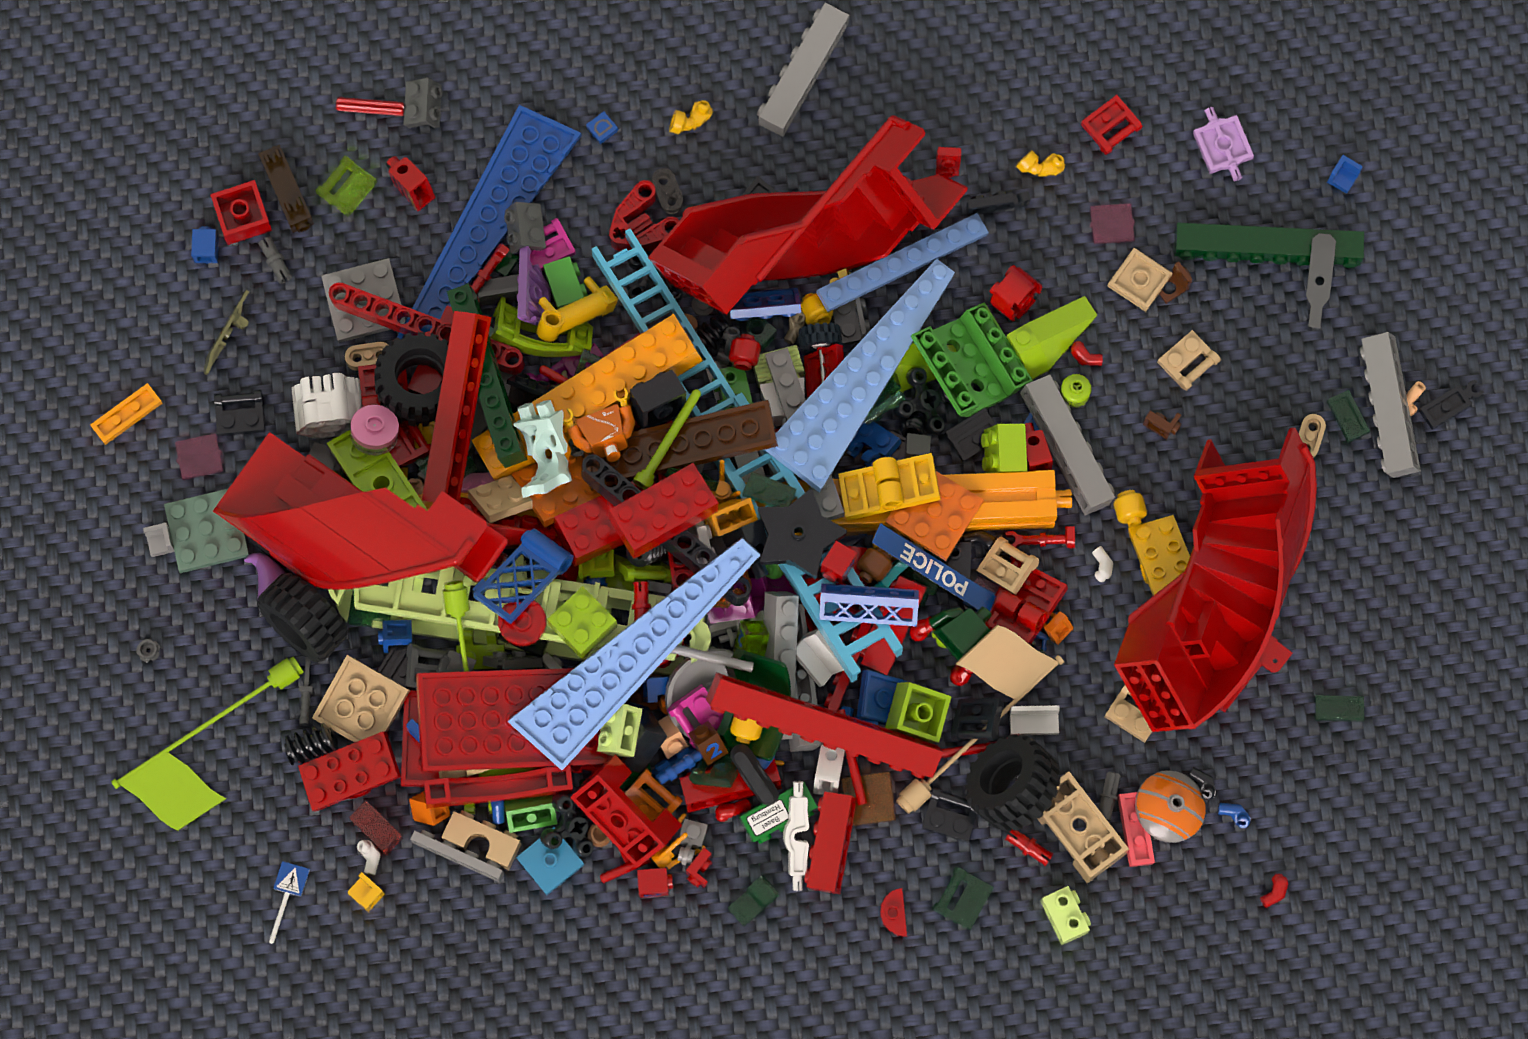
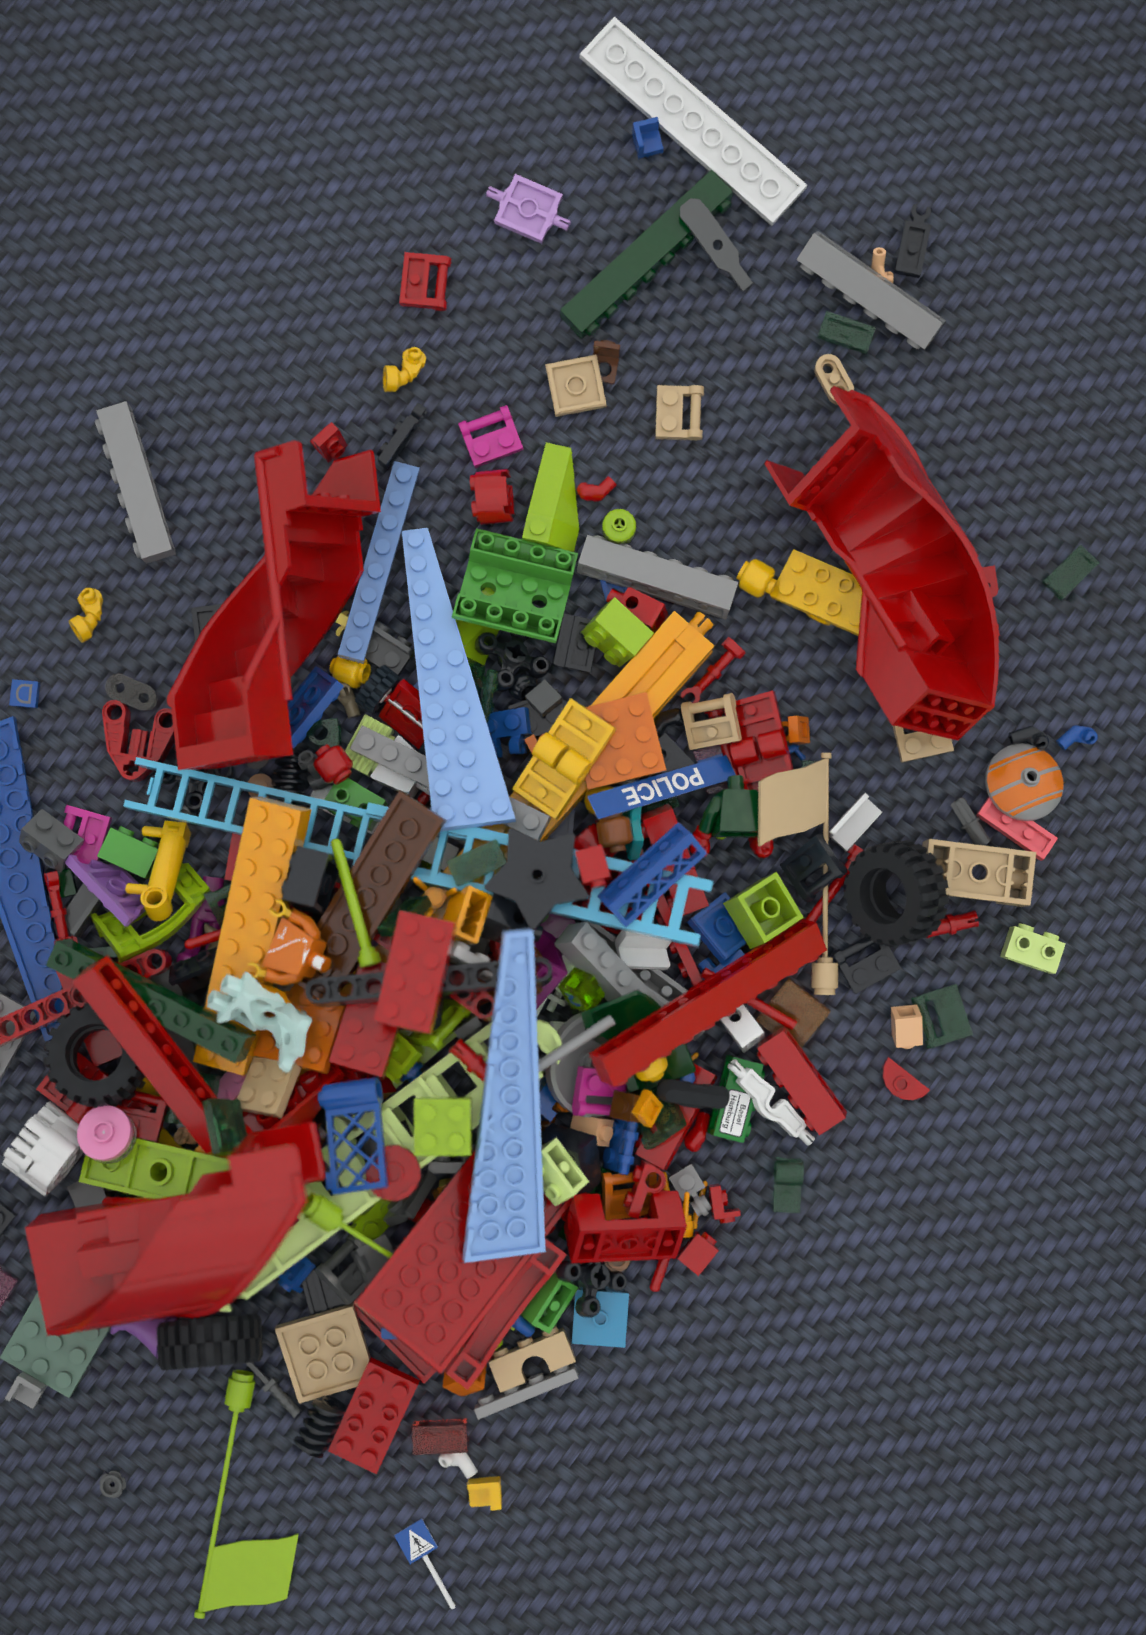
camera: 45 degrees left, 10 degrees up
(367, 353) = (32, 1069): tan plate -> none
(455, 484) = (224, 1124): none -> clear green plate
(649, 802) = (635, 1199): none -> red plate
(716, 751) = (647, 1108): none -> light orange tile
(933, 878) = (906, 1026): none -> light nougat brick
(1049, 264) = (494, 444): none -> dark pink plate
(1105, 565) = (783, 643): white arm -> none
(1112, 223) = (507, 361): clear pink piece -> none
(1158, 423) = (709, 488): reddish brown bracket -> none
(1385, 193) = (693, 121): none -> white plate

